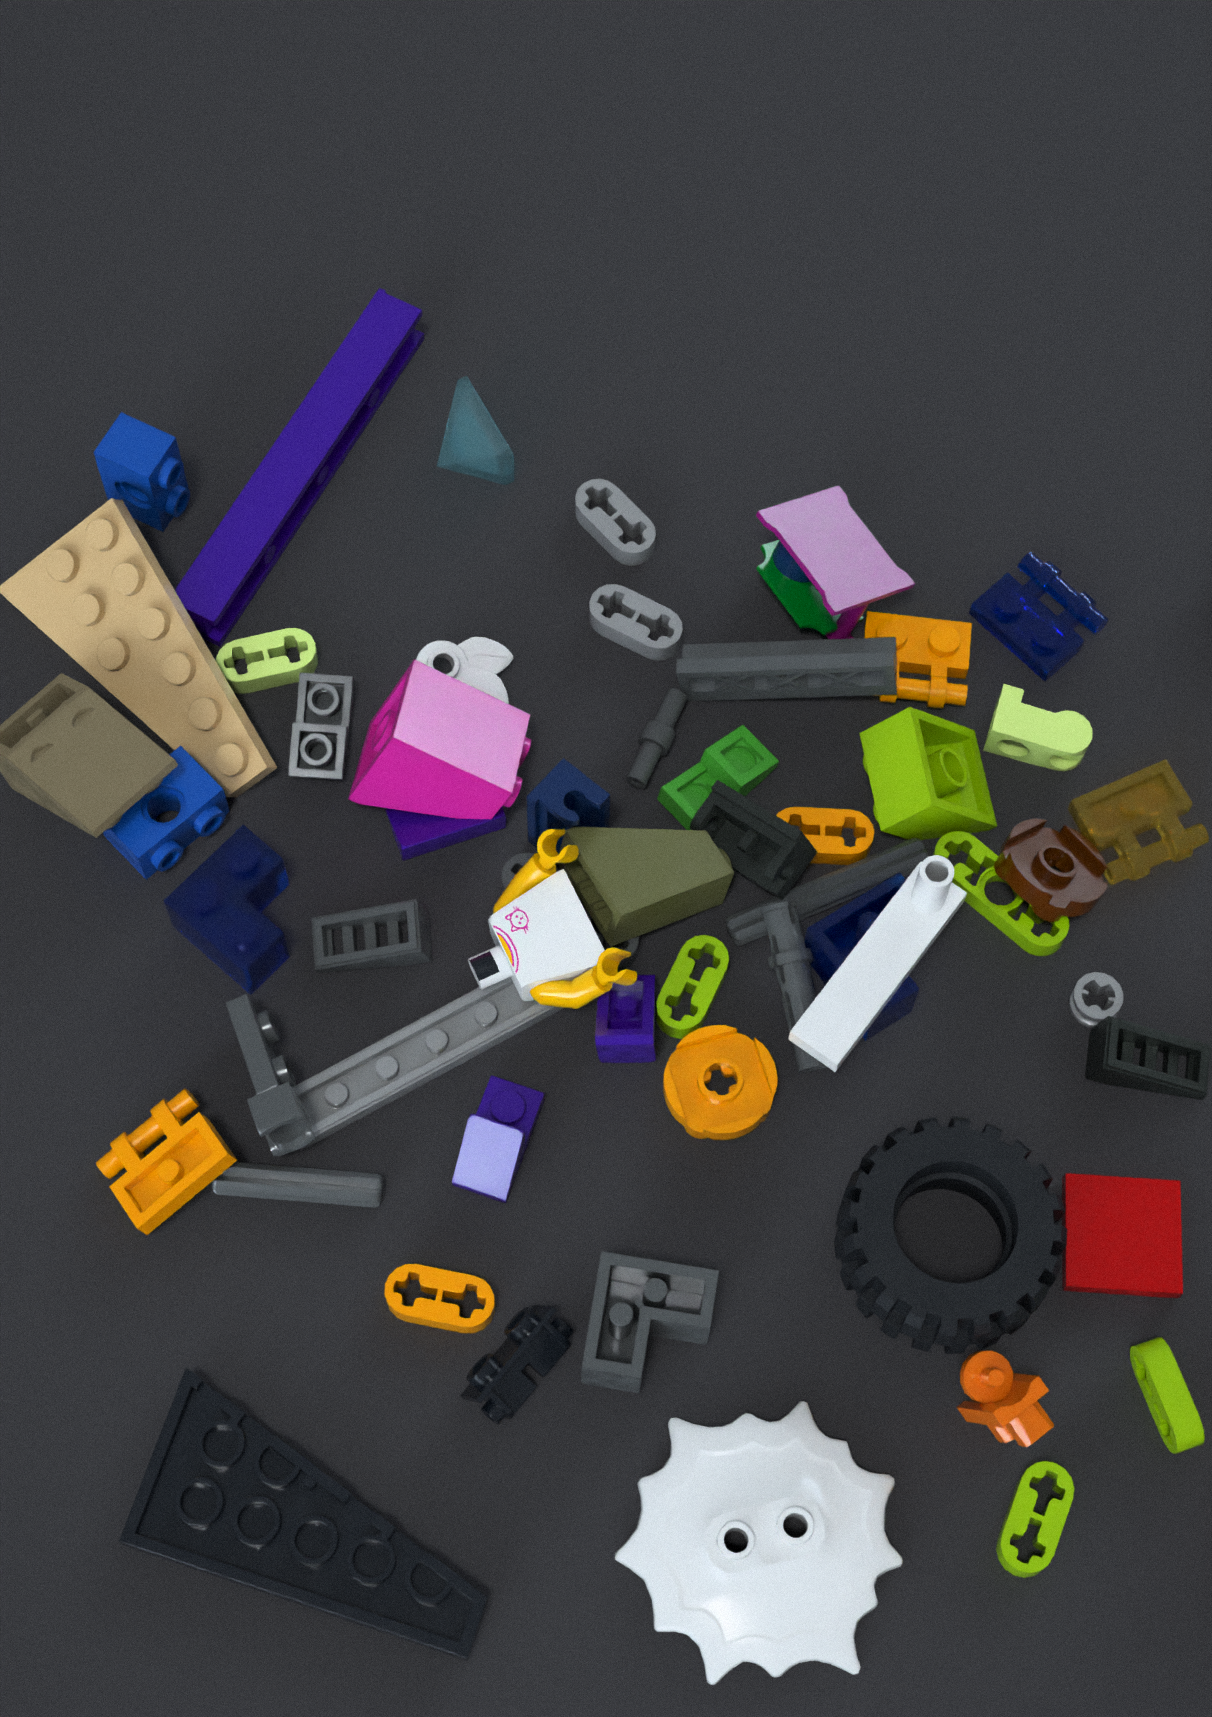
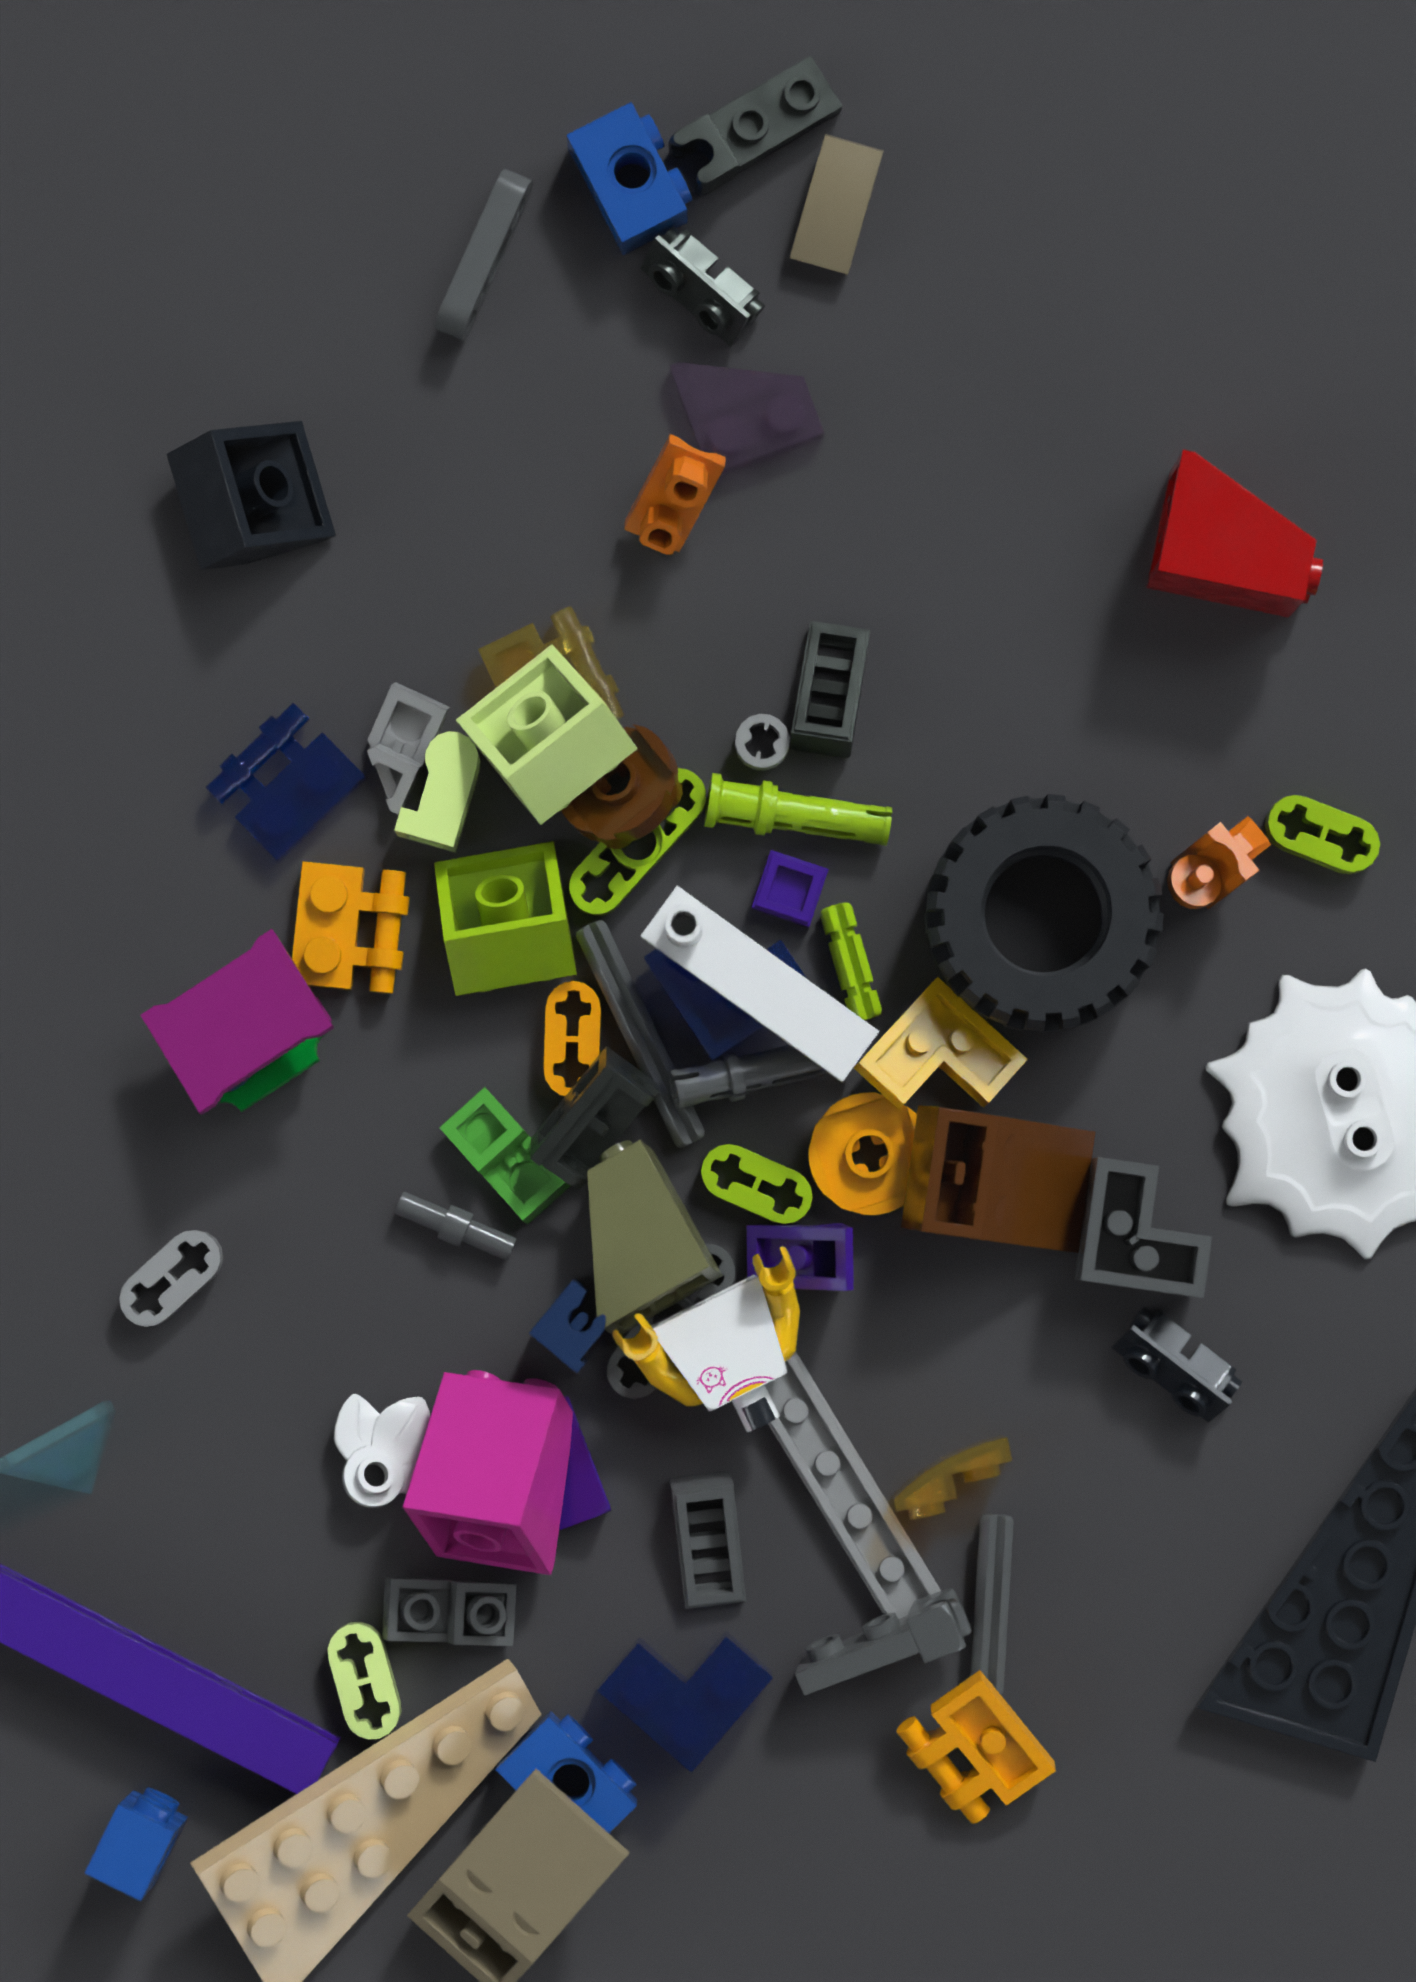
camera: 90 degrees left, 20 degrees up
(416, 1136) = (934, 1484): none -> clear yellow slope
(437, 1312) = (1126, 1451): light orange beam -> none
(497, 1139) = (934, 1391): slope -> none
(637, 619) = (292, 1244): light grey beam -> none
(697, 1185) = (998, 1179): none -> reddish brown slope
(788, 669) = (370, 1075): dark grey fence -> none
(830, 1139) = (942, 1034): none -> yellow plate
(896, 1072) = (850, 960): none -> lime axle
(962, 1022) = (789, 889): none -> dark purple tile
(1035, 1003) = (770, 809): none -> lime pin
(1093, 803) = (547, 734): none -> yellowish green slope
(1098, 703) = (401, 740): none -> light grey slope
(1122, 1235) = (1025, 729): red tile -> none
(1167, 1395) = (1196, 694): lime beam -> none

